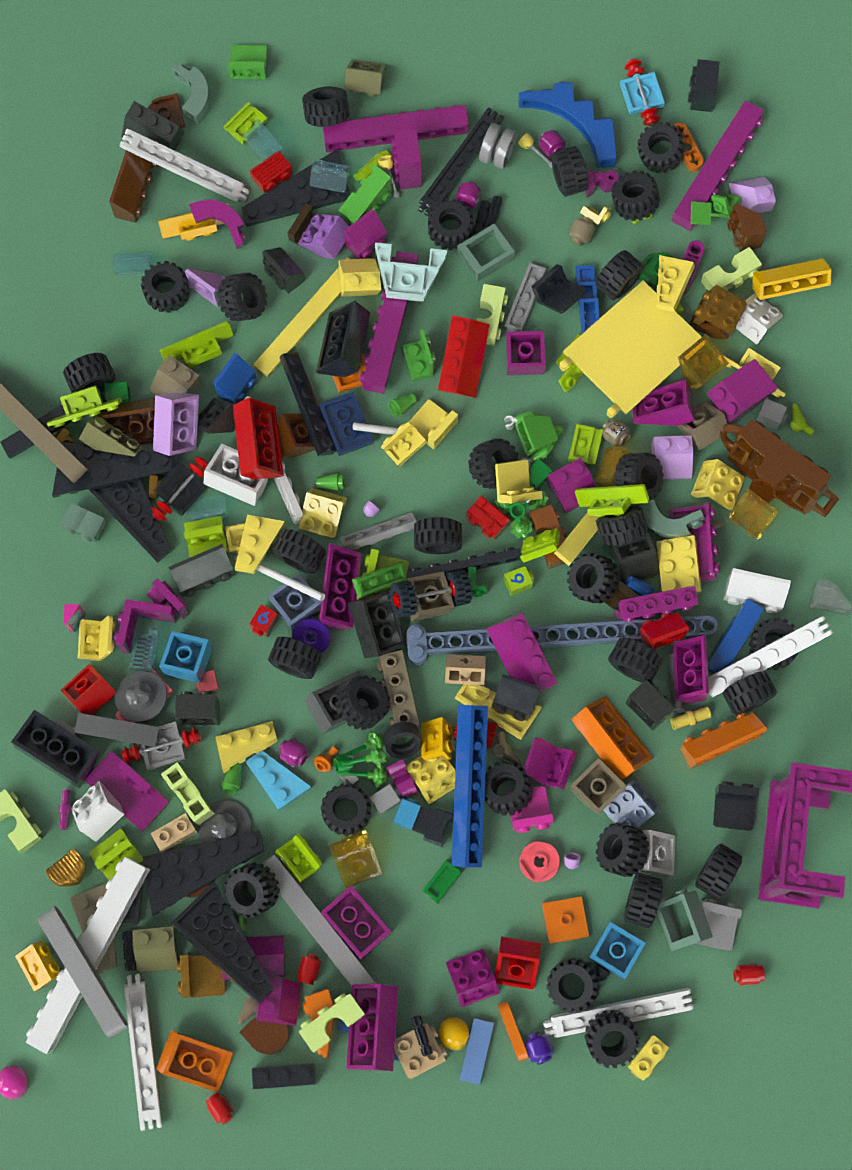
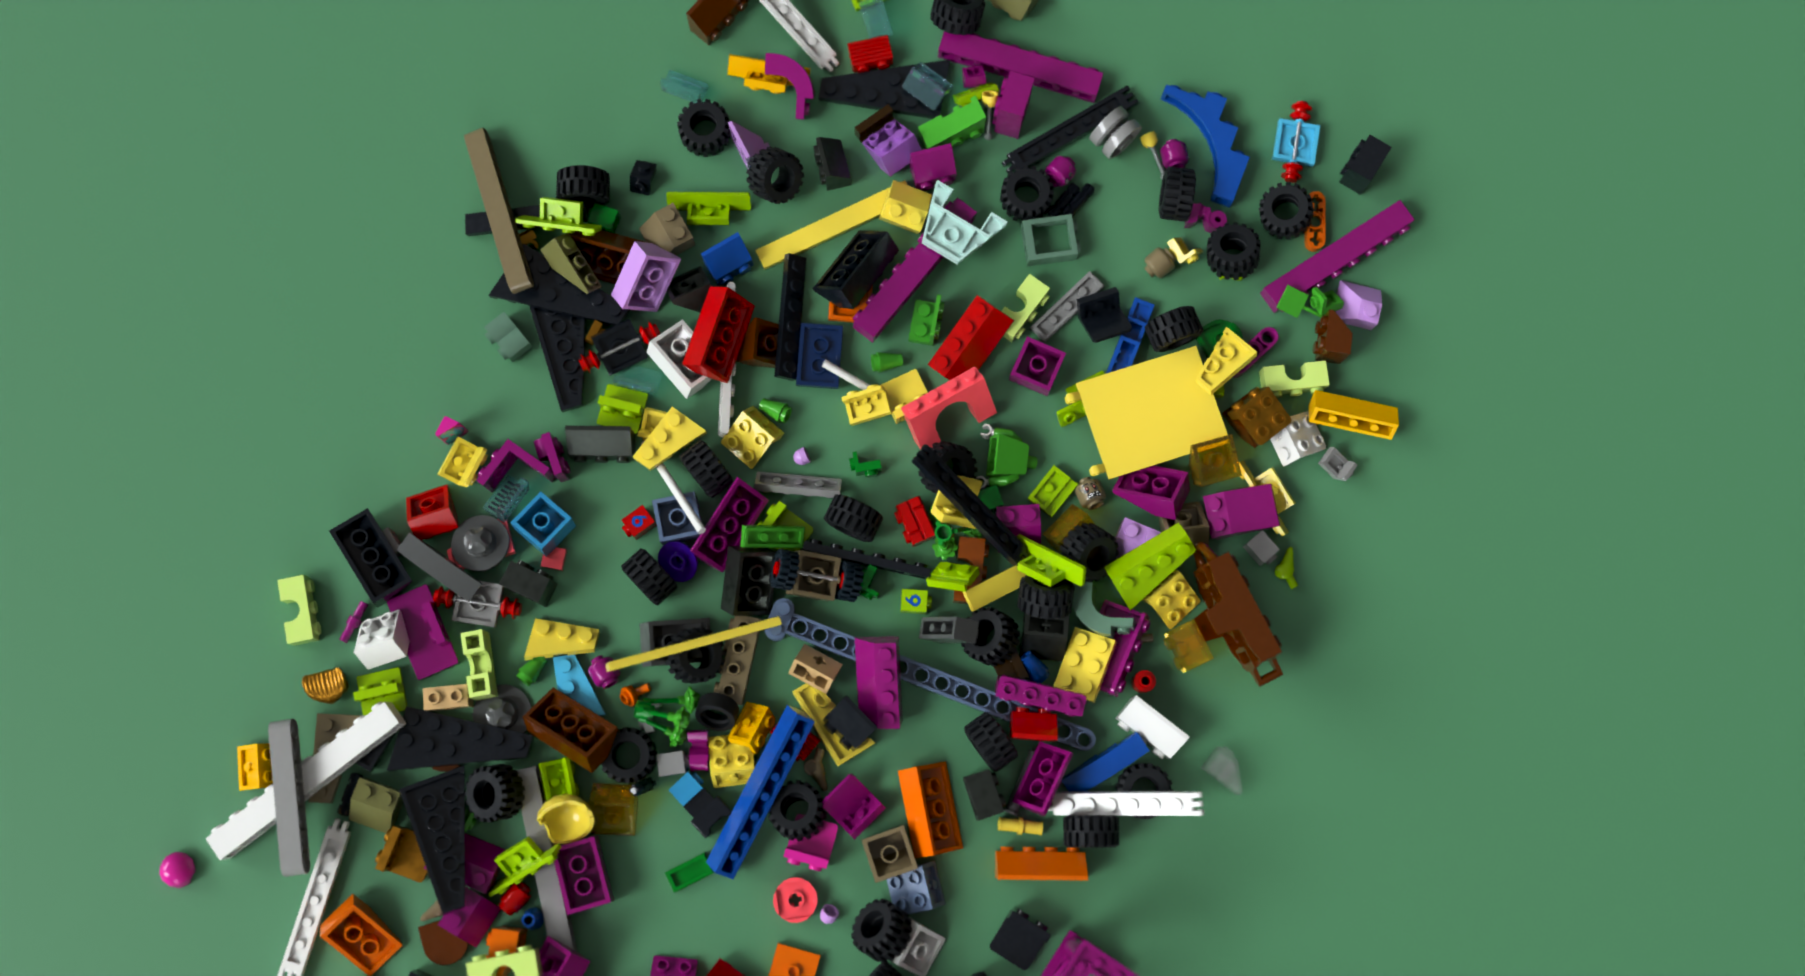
camera: 20 degrees right, 5 degrees up
(133, 348) = (642, 177): none -> black bracket
(290, 808) = (571, 729): none -> reddish brown slope
(300, 933) = (521, 860): none -> lime bracket
(322, 881) = (566, 818): none -> light yellow cylinder
(337, 979) = (538, 918): none -> blue cone
(359, 690) = (692, 644): none -> light yellow tile
(363, 153) = (973, 76): none -> magenta bracket
(370, 828) = (642, 786): none -> black axle
(428, 494) = (868, 469): none -> green bracket
(453, 427) = (923, 411): none -> coral arch
(528, 480) = (970, 505): none -> black hinge
(558, 587) = (949, 630): none -> dark grey brick
(692, 463) = (1149, 564): none -> lime wedge
(729, 563) = (1137, 684): none -> red brick
(798, 324) = (1337, 465): none -> light grey bracket

